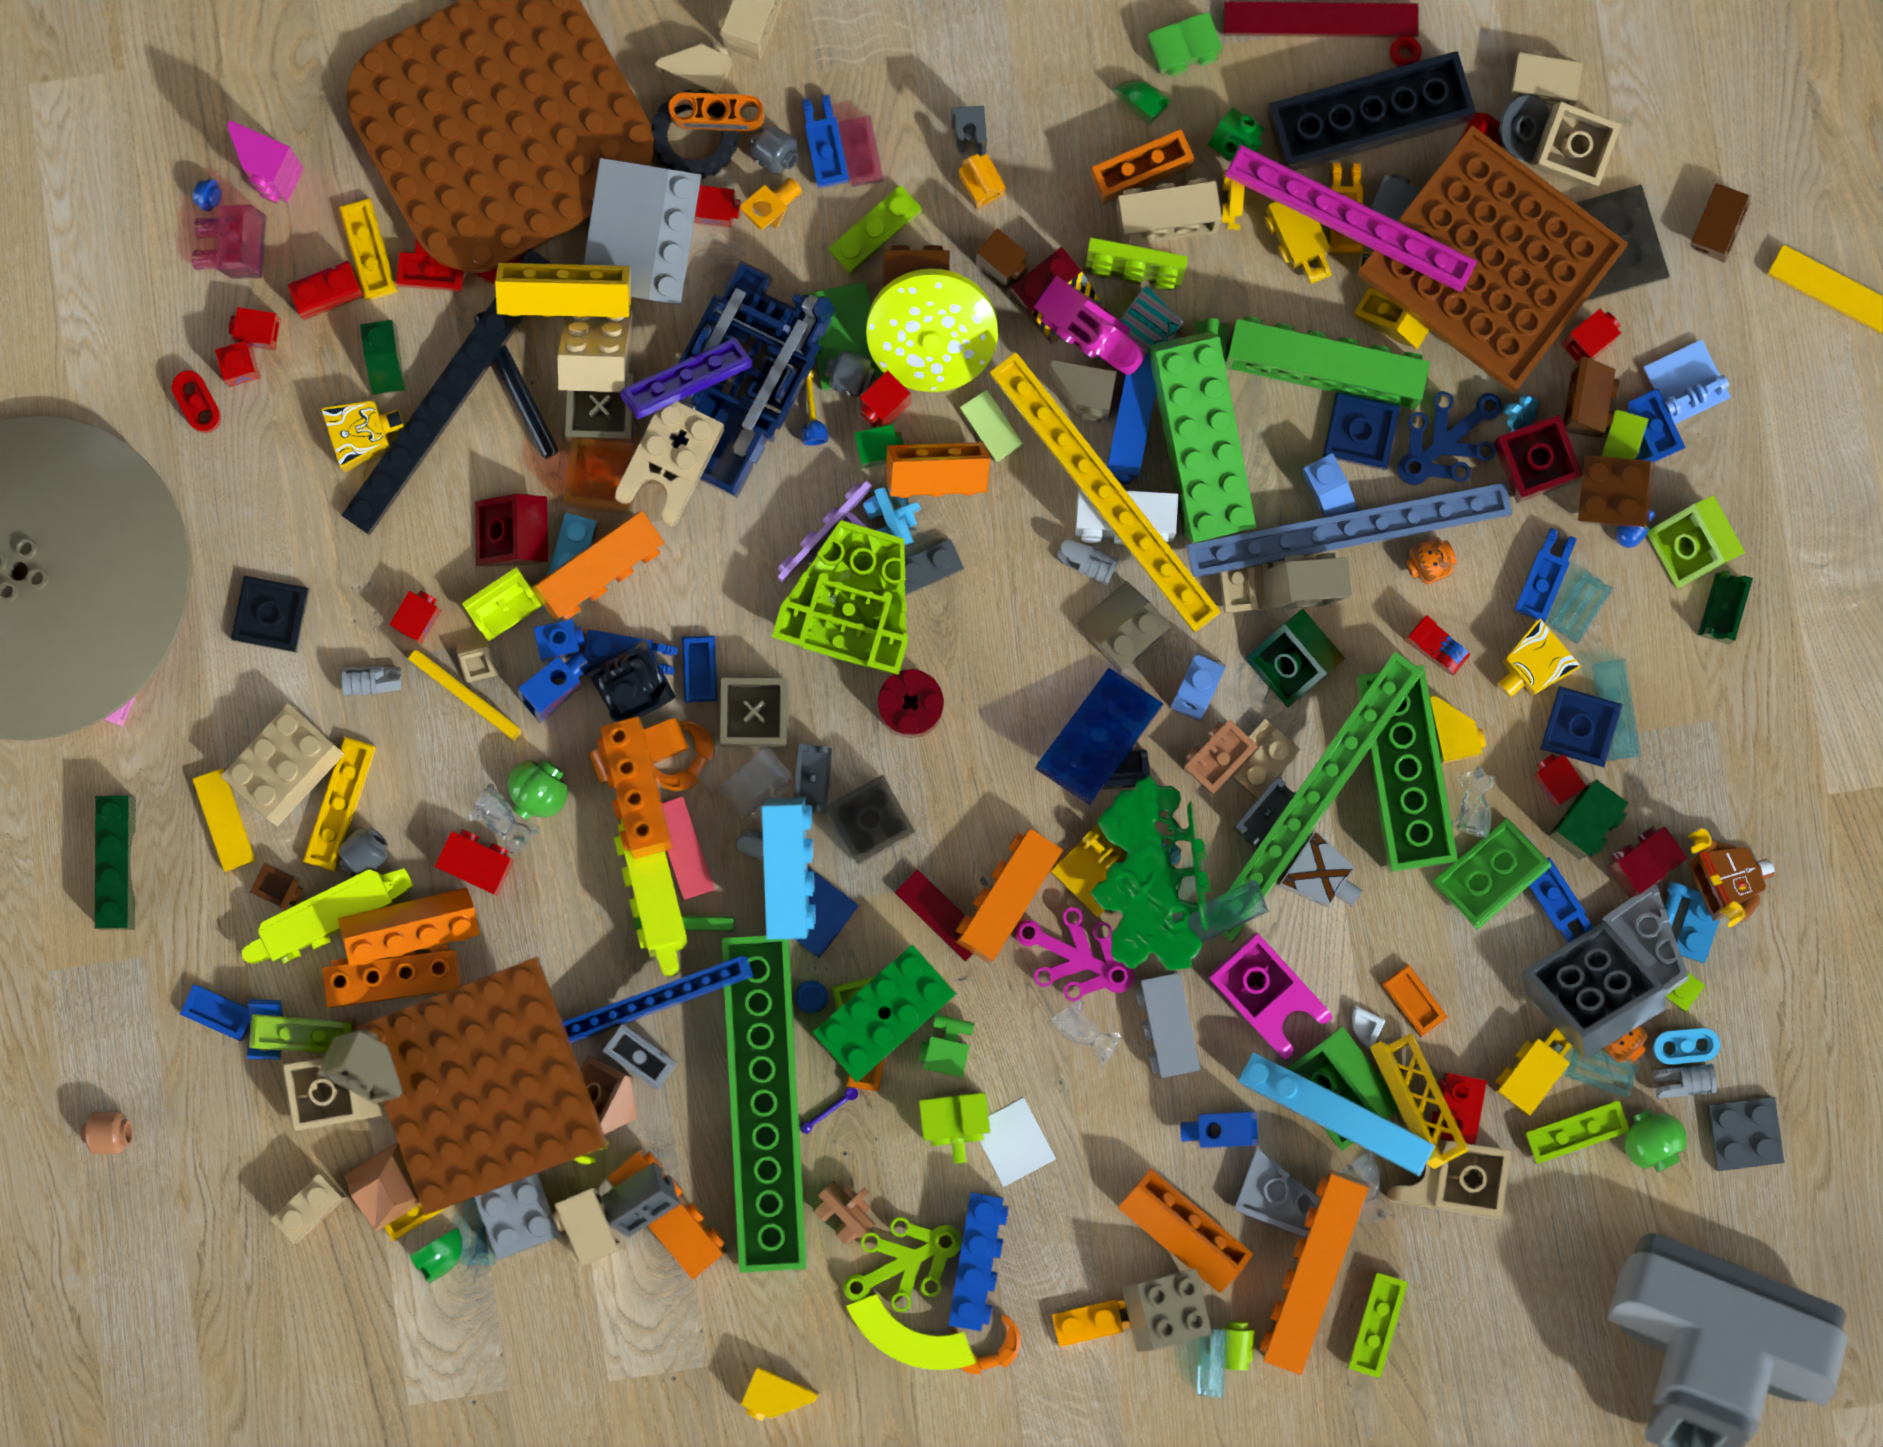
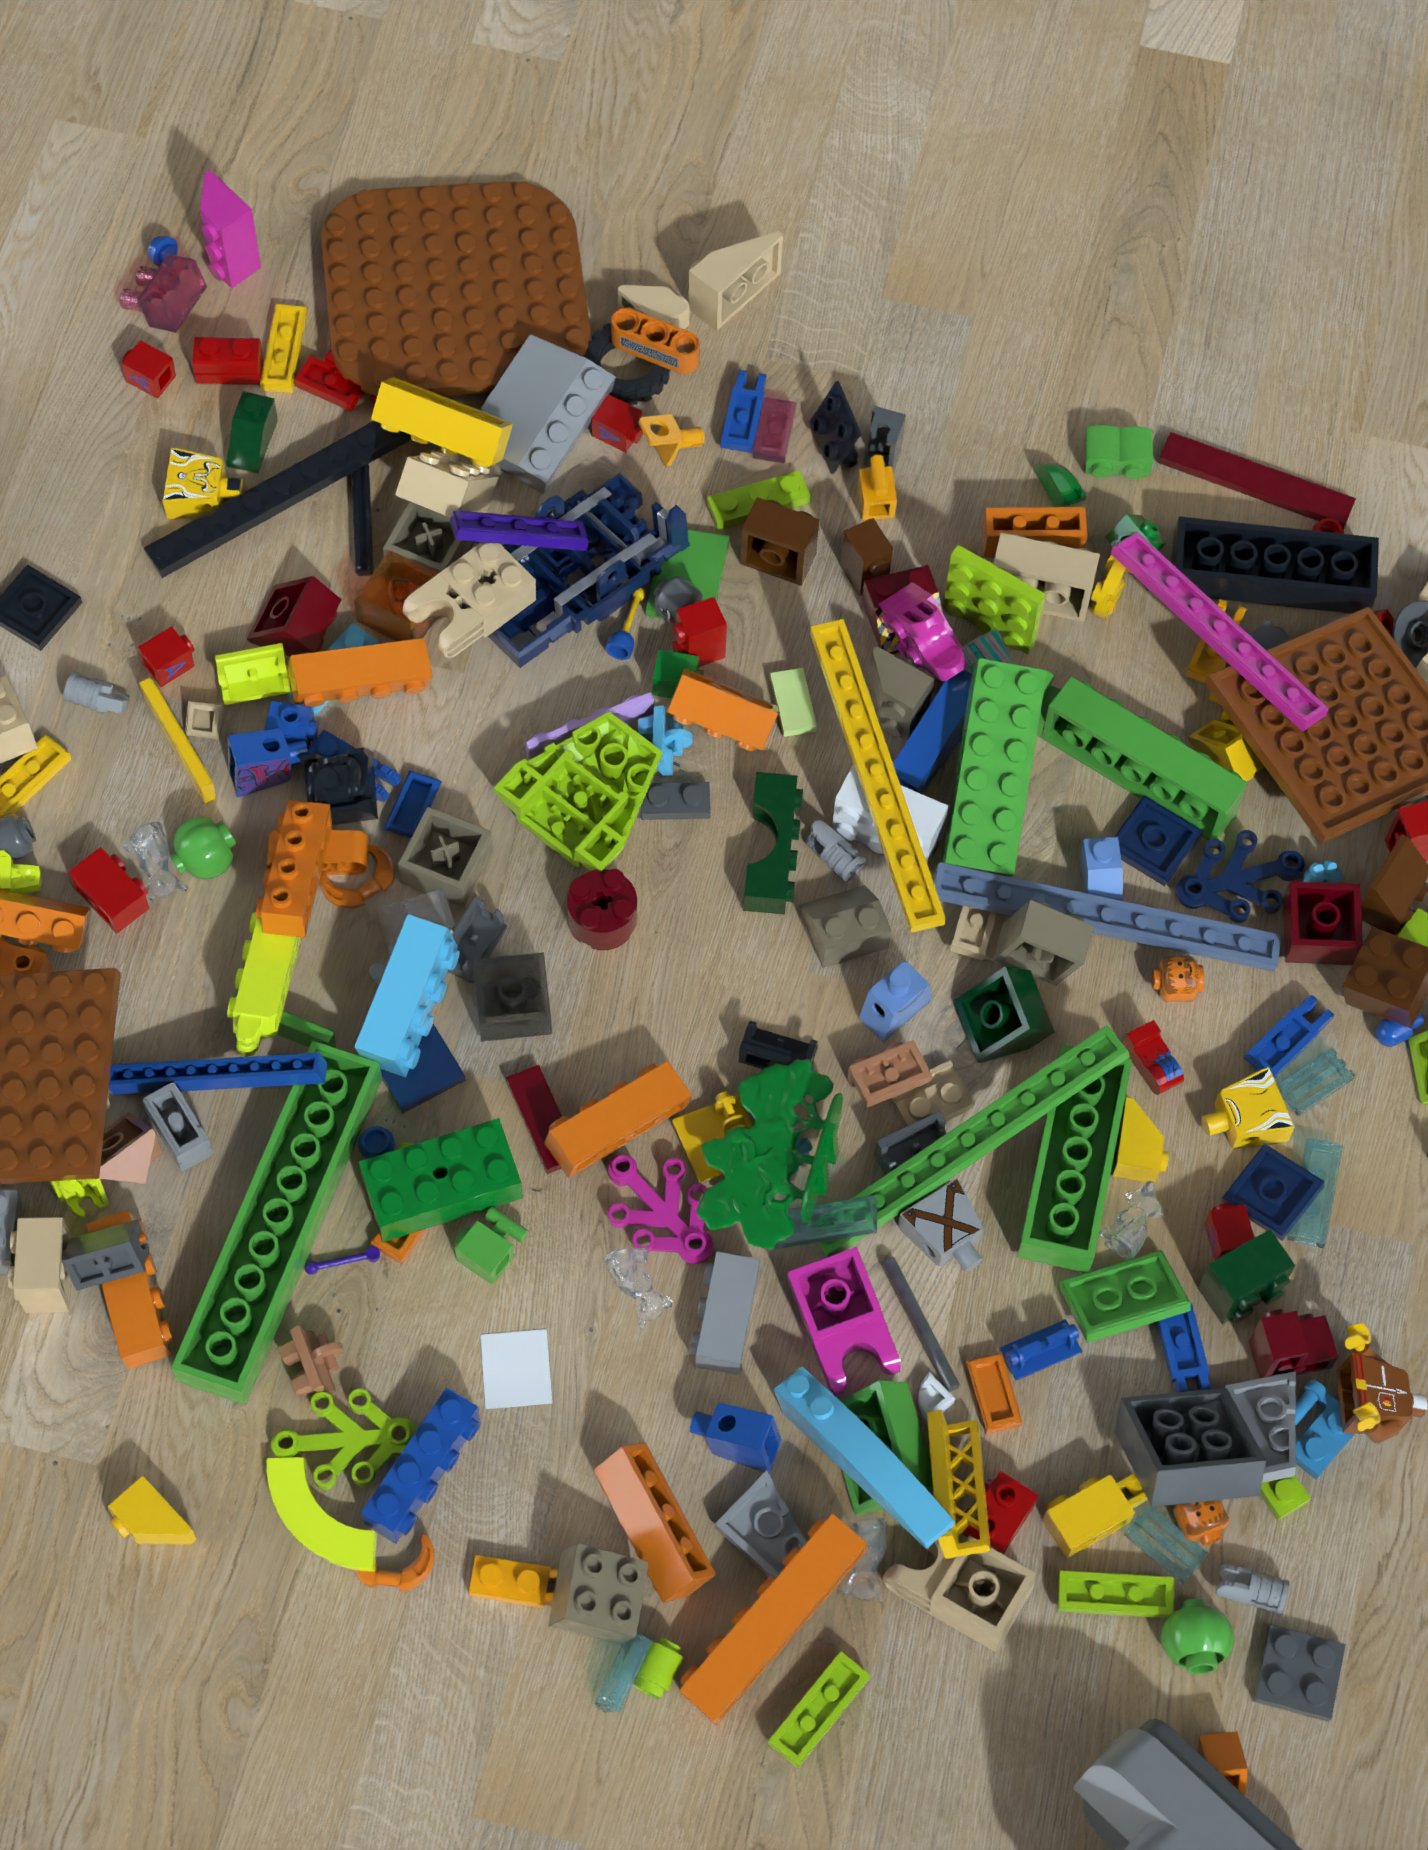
camera: 20 degrees right, 20 degrees down
(196, 403) = (63, 411): red plate -> none
(237, 363) = (116, 389): red brick -> none
(687, 854) = (318, 960): coral tile -> none
(773, 149) = (694, 397): dark grey head -> none
(918, 133) = (836, 430): none -> black hinge
(932, 330) = (773, 585): neon yellow dish -> none
(955, 1122) = (464, 1308): lime brick -> none
(1018, 536) = (767, 879): none -> dark green arch
(1099, 736) = (775, 1005): clear blue plate -> none
(1300, 240) = (1162, 647): yellow brick -> none
(1331, 965) = (920, 1324): none -> flat silver bar
(1439, 946) = (1042, 1349): none -> blue hinge
(1685, 1046) = (1266, 1549): medium azure plate -> none
(1712, 1235) = (1226, 1756): none -> orange brick

